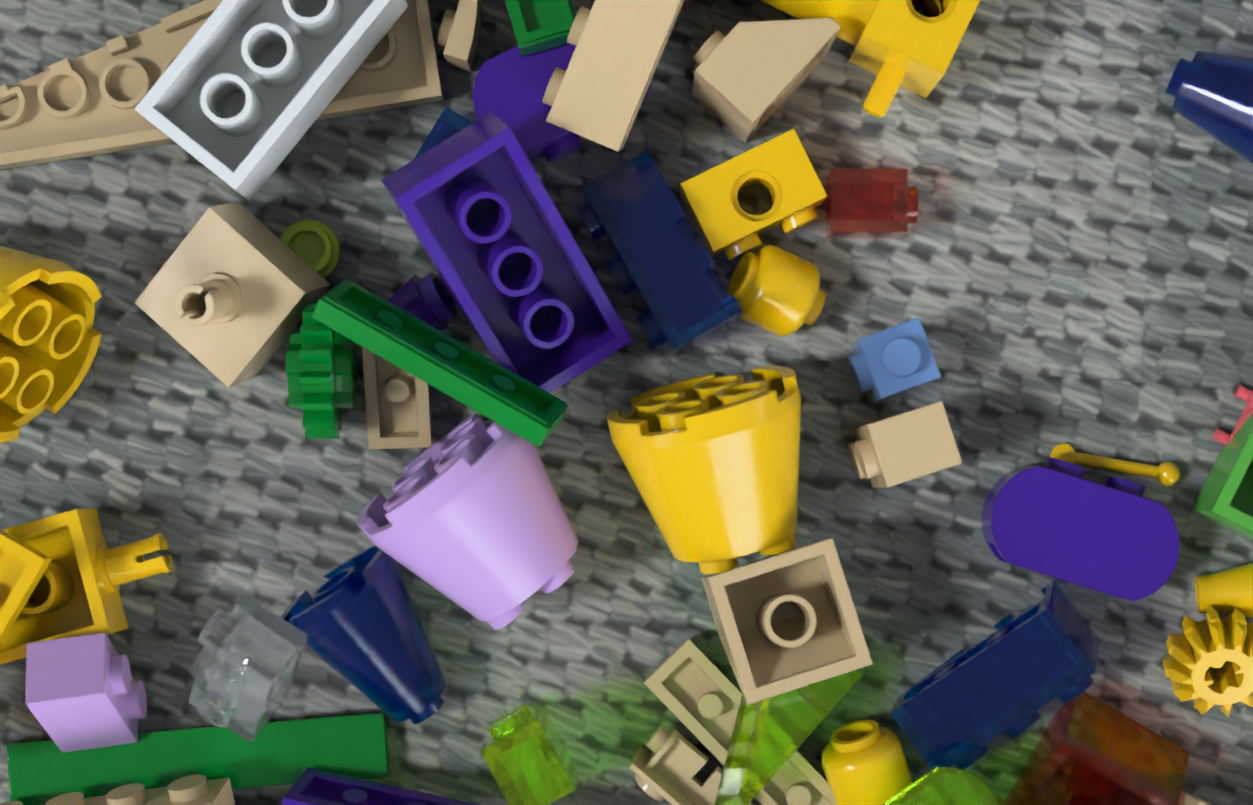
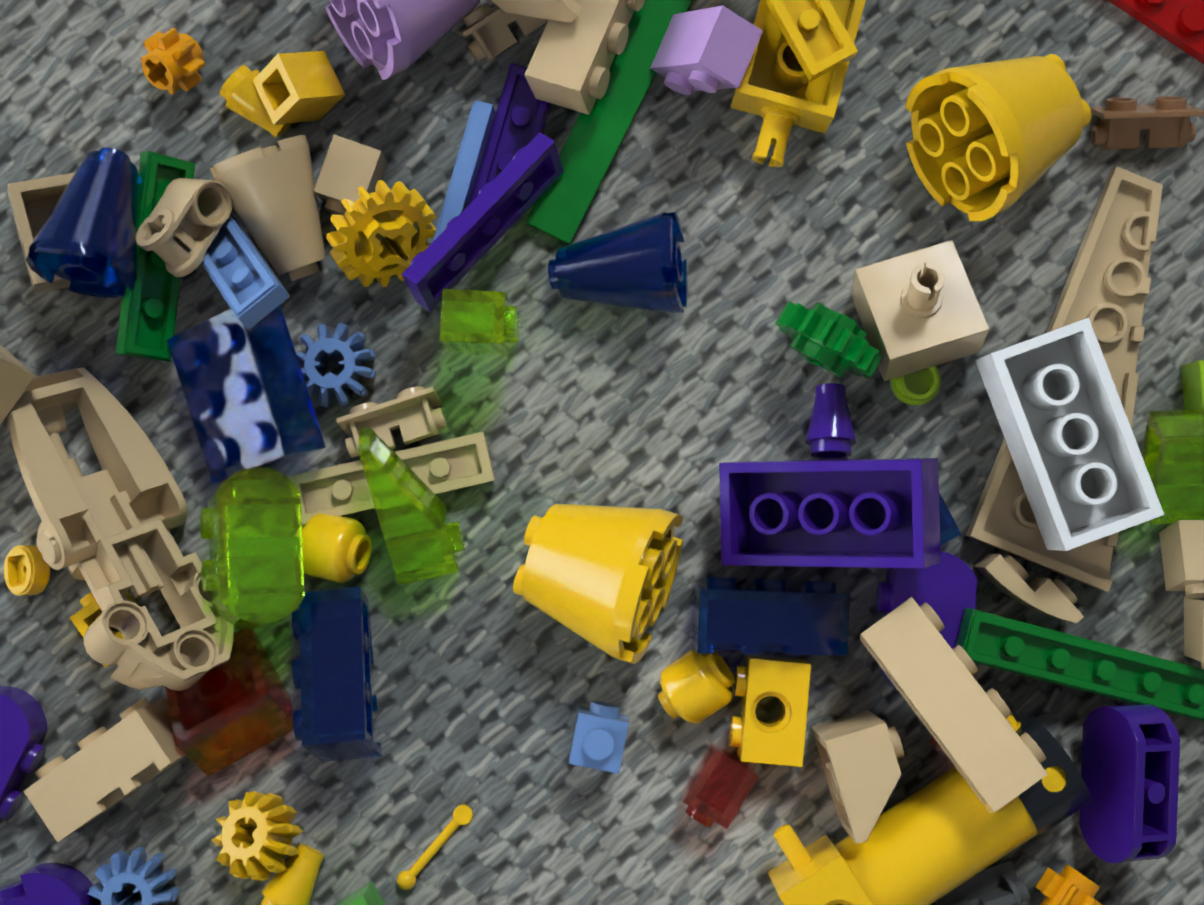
camera: 120 degrees right, 0 degrees up
(245, 667) = (657, 168): clear brick -> none
(395, 406) = (787, 385): tan plate -> none
(441, 361) = (787, 424): green tile -> none
(477, 521) = (662, 385): lavender cone -> none
(787, 620) = (465, 554): tan slope -> none
(904, 446) = (535, 708): tan brick -> none
(1081, 529) = (404, 796): dark purple brick -> none

